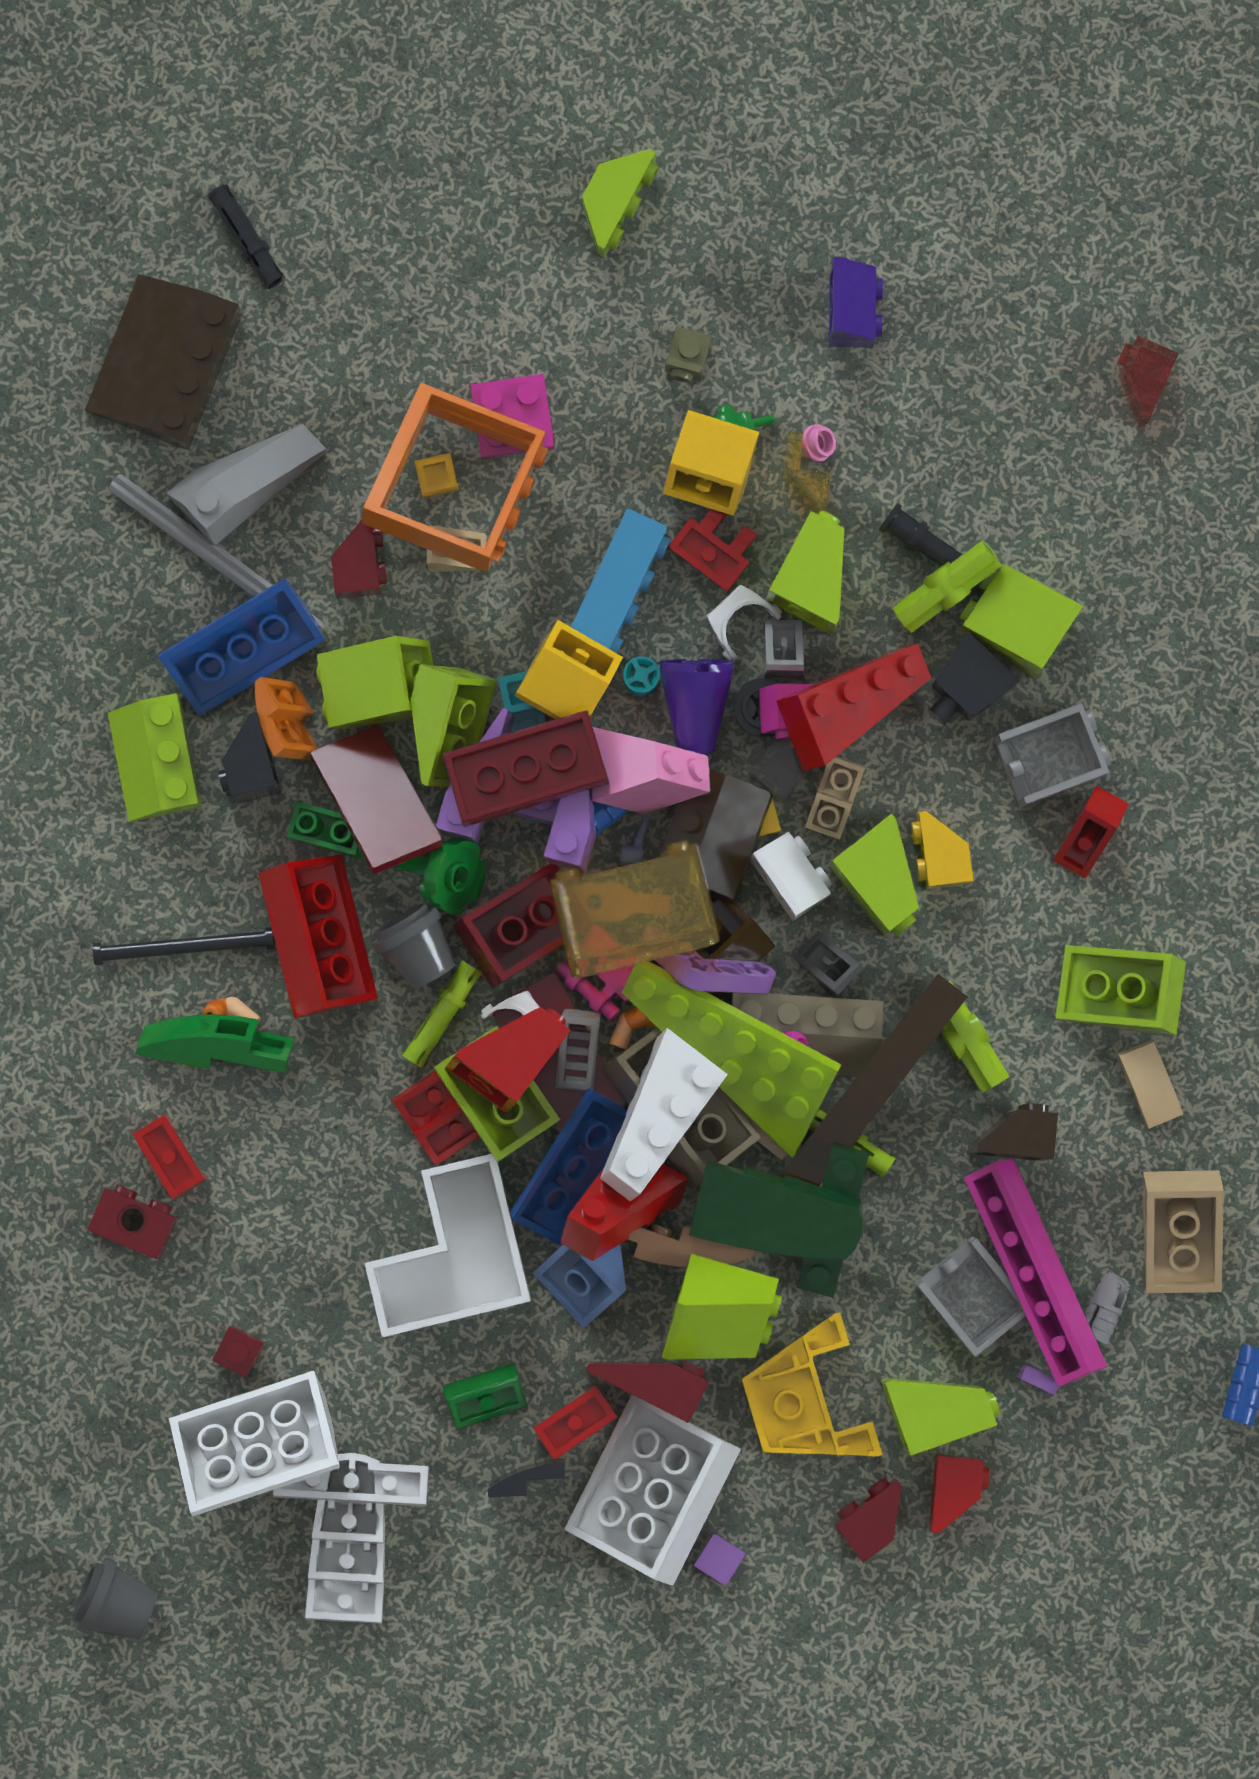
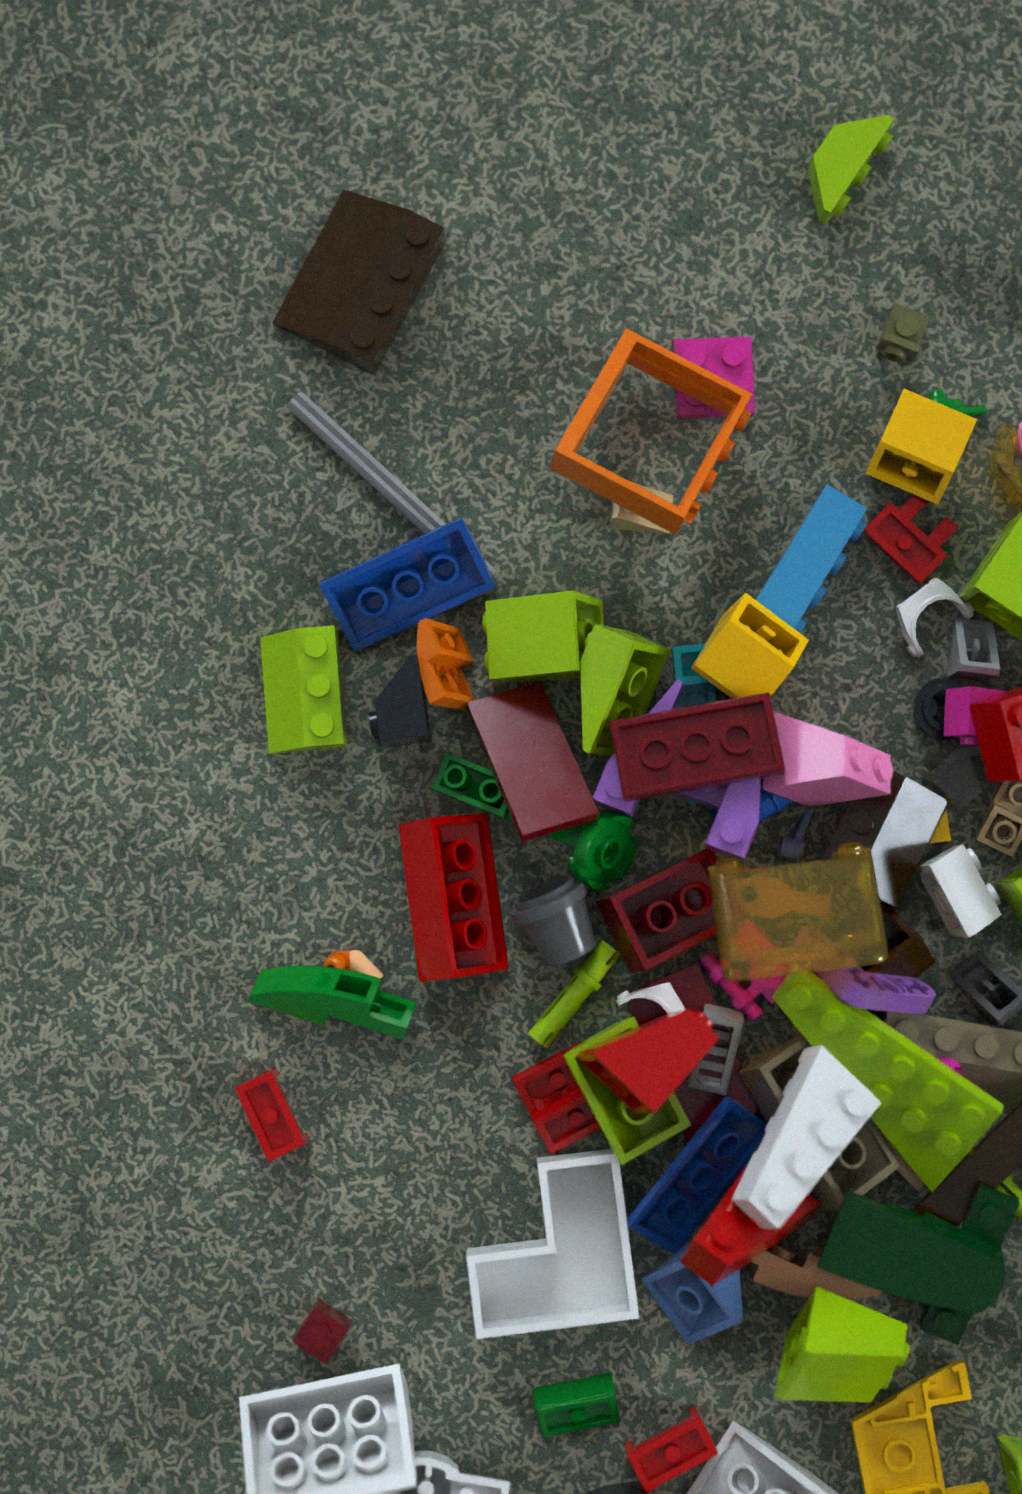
camera: 10 degrees right, 0 degrees up
(110, 1221) = (201, 1178): dark red brick -> none
(183, 946) = (311, 890): black bar -> none
(237, 485) = (420, 417): light grey wedge -> none
(253, 248) = (465, 176): black pin -> none
(357, 565) = (536, 511): dark red slope -> none
(436, 475) = (628, 430): yellow tile -> none
(626, 1024) = (770, 1023): arm -> none
(638, 670) = (828, 658): teal wheel -> none
(661, 1384) = (776, 1427): dark red slope -> none
(696, 700) = (878, 693): dark purple cone -> none

